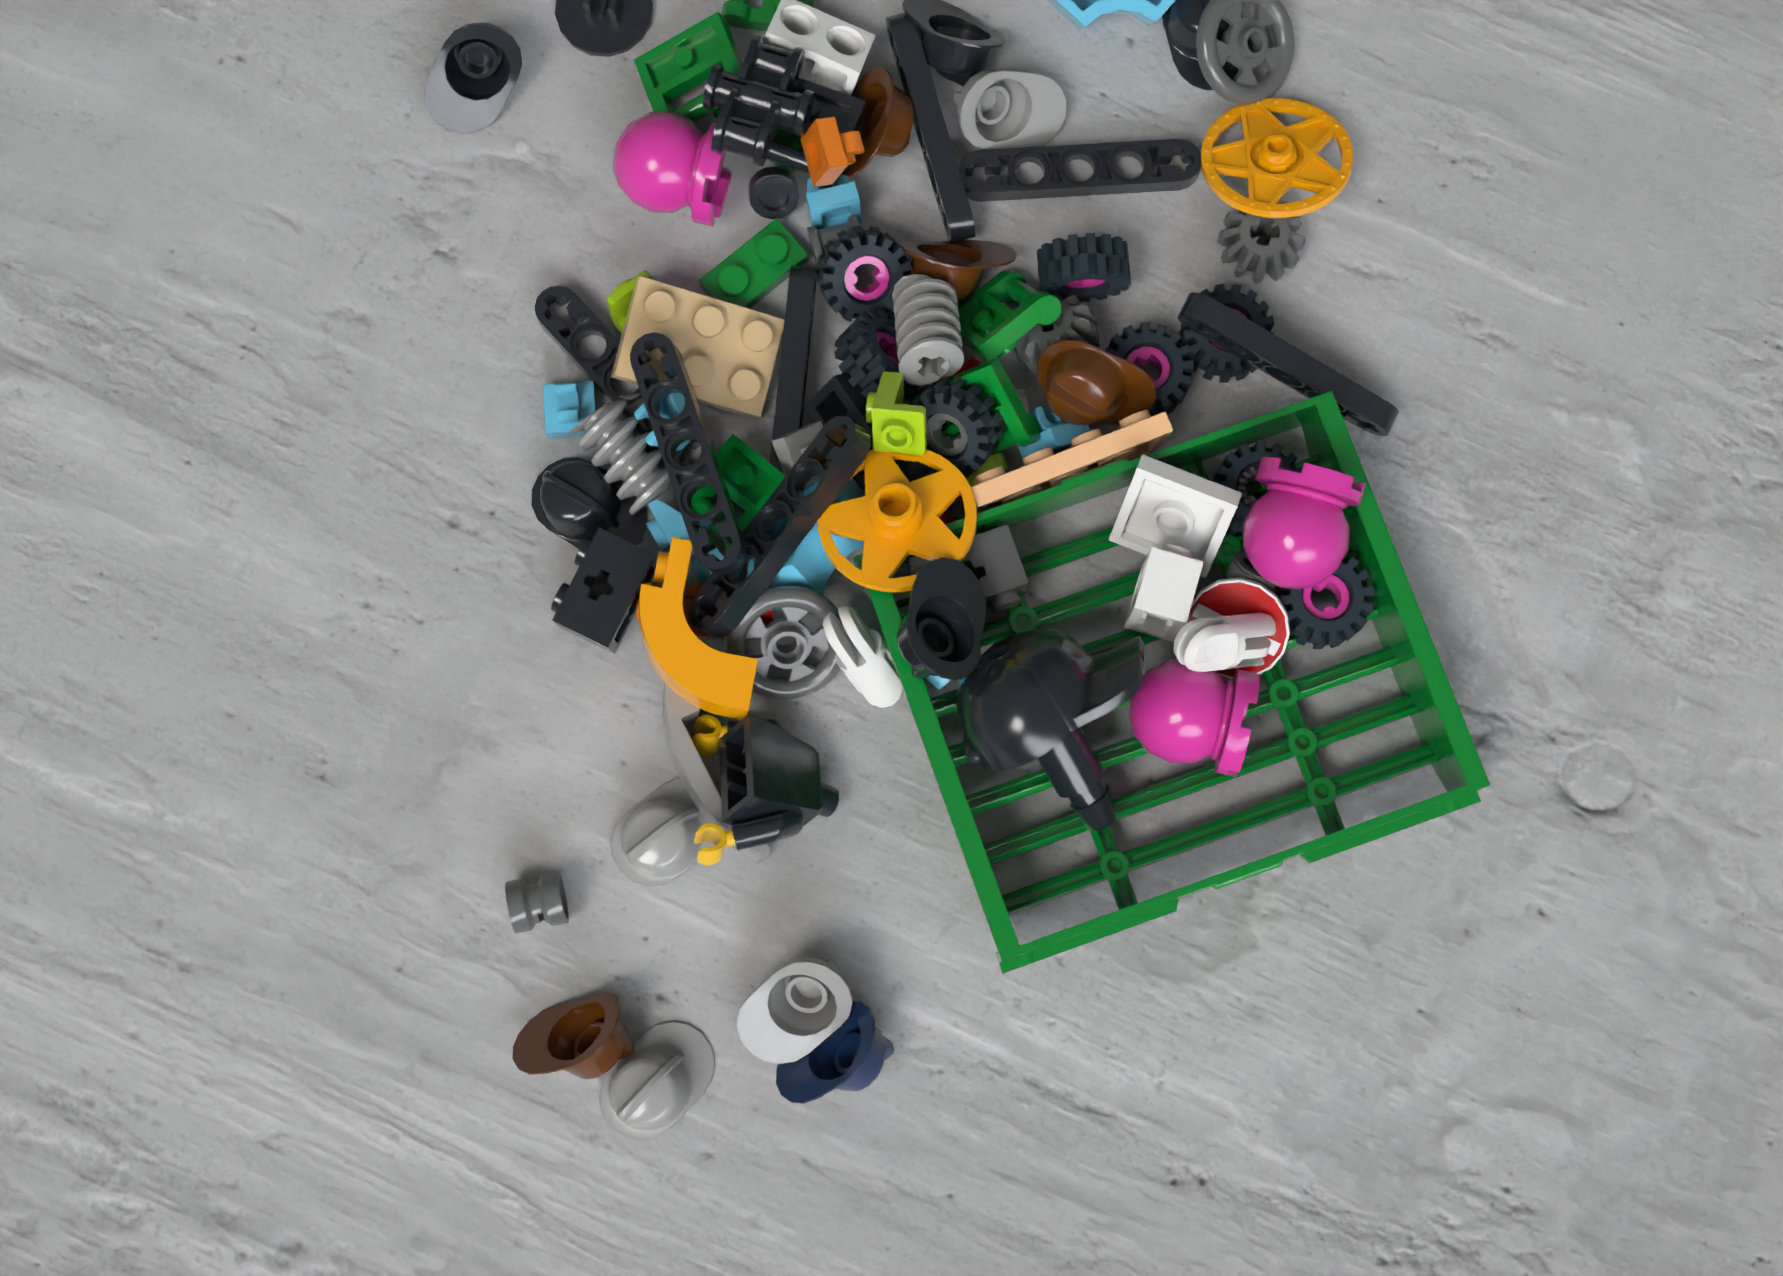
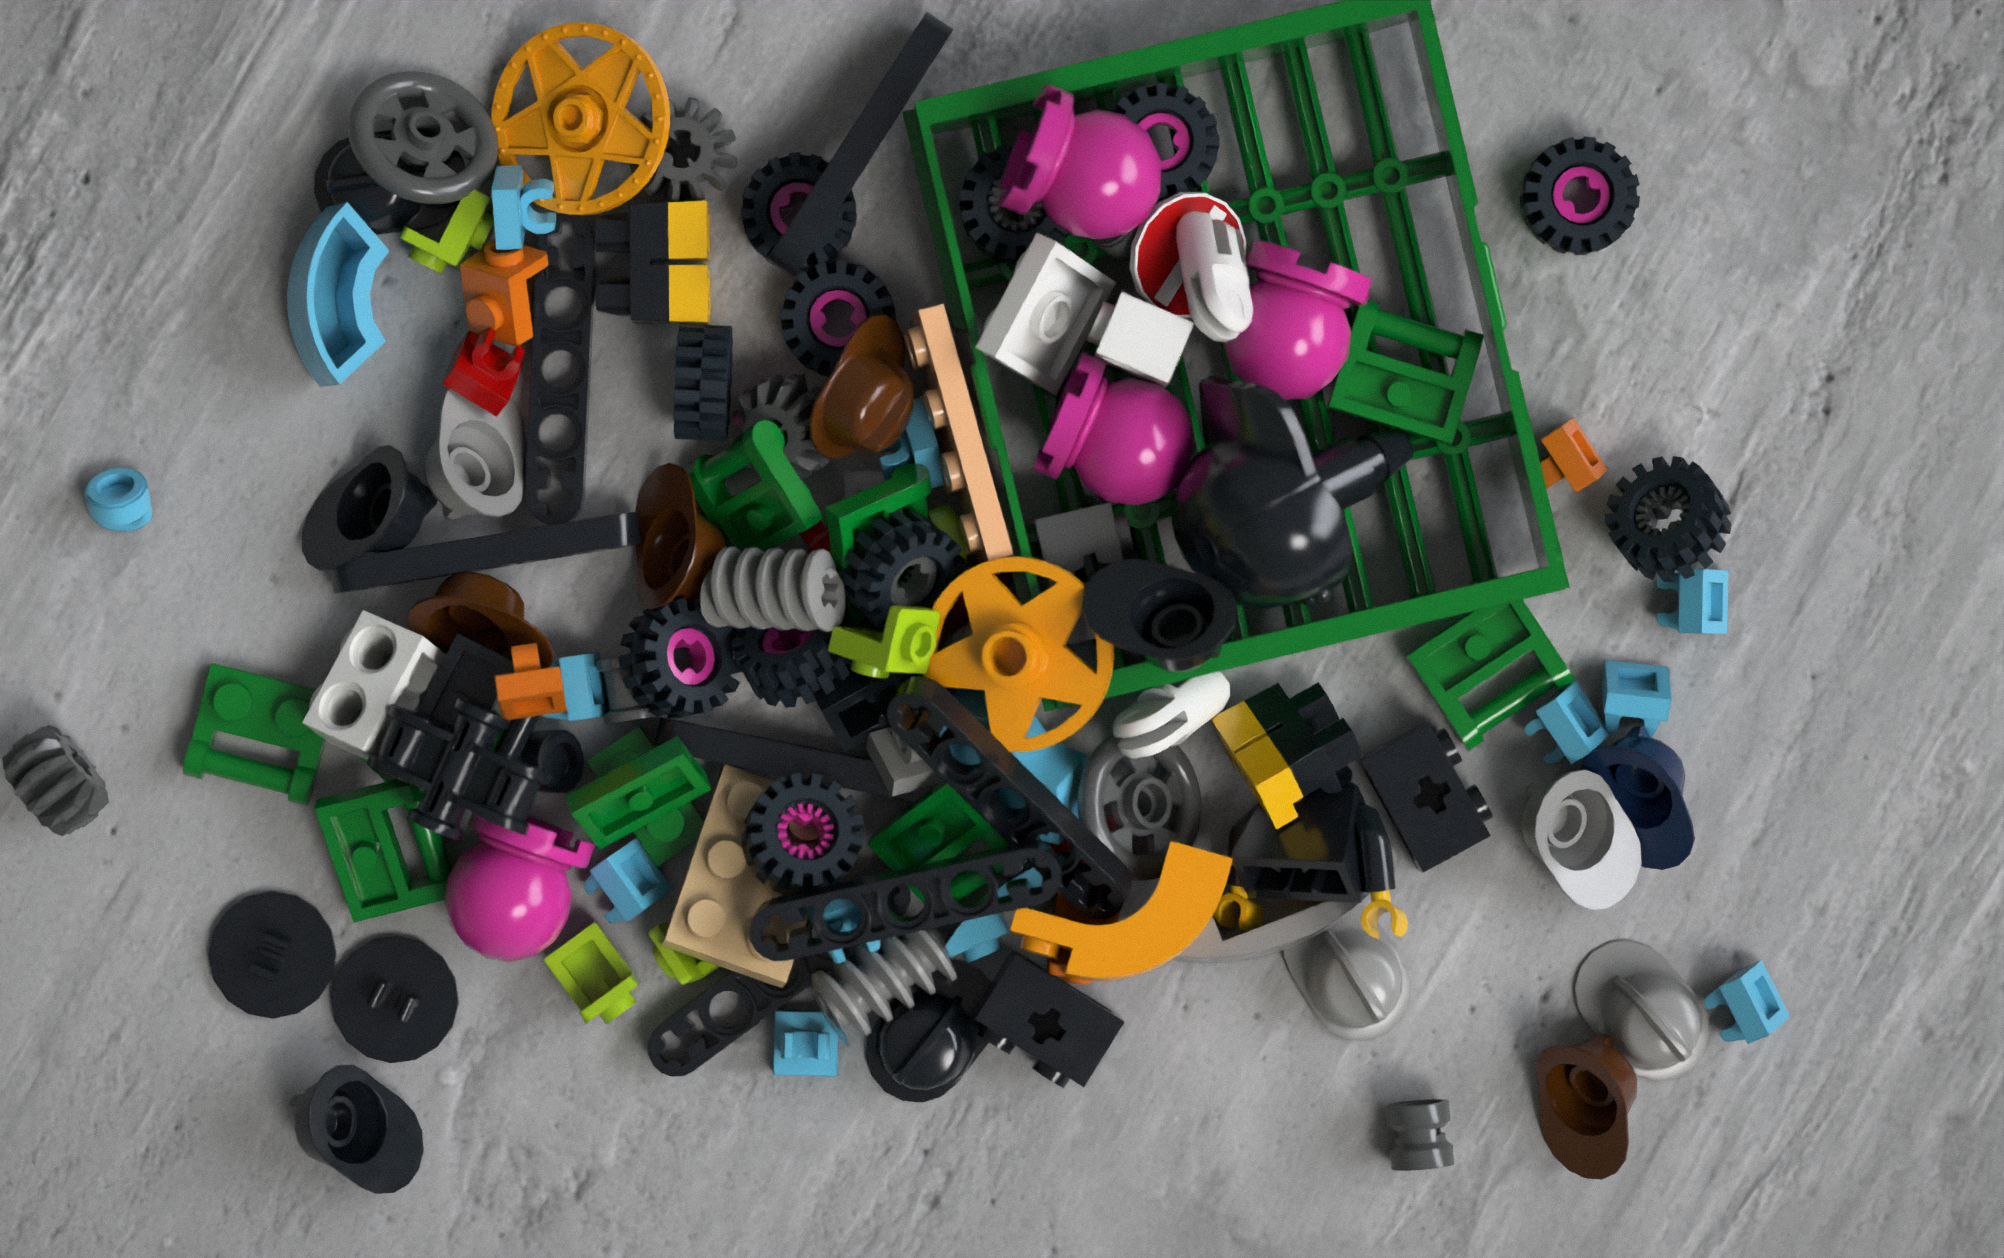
camera: 80 degrees left, 10 degrees up
(577, 101) = (395, 999): none -> black piece
(609, 240) = (594, 974): none -> lime bracket
(671, 1170) = (1752, 1002): none -> medium azure tile
(685, 257) = (629, 881): none -> medium azure tile
(755, 249) = (638, 792): none -> green plate
(759, 379) = (804, 803): none -> black bush
(830, 849) = (1426, 833): none -> black brick
(844, 753) = (1287, 746): none -> hips
(889, 991) = (1571, 723): none -> medium azure tile
(921, 1042) = (1635, 692): none -> medium azure tile
(940, 906) = (1477, 650): none -> green plate
(1003, 1089) = (1701, 602): none -> medium azure tile
(1070, 108) = (484, 371): none -> red tile
(1084, 580) = (1119, 436): none -> dark pink tile
(1085, 1039) = (1653, 498): none -> black bush
(1109, 966) = (1571, 457): none -> orange tile
(1133, 108) = (498, 291): none -> orange bracket
(1147, 813) = (1401, 392): none -> green plate
(1172, 234) = (658, 291): none -> hips
(1173, 83) = (468, 229): none -> lime bracket
(1200, 111) = (513, 209): none -> medium azure tile
(1346, 970) = (1556, 219): none -> black bush

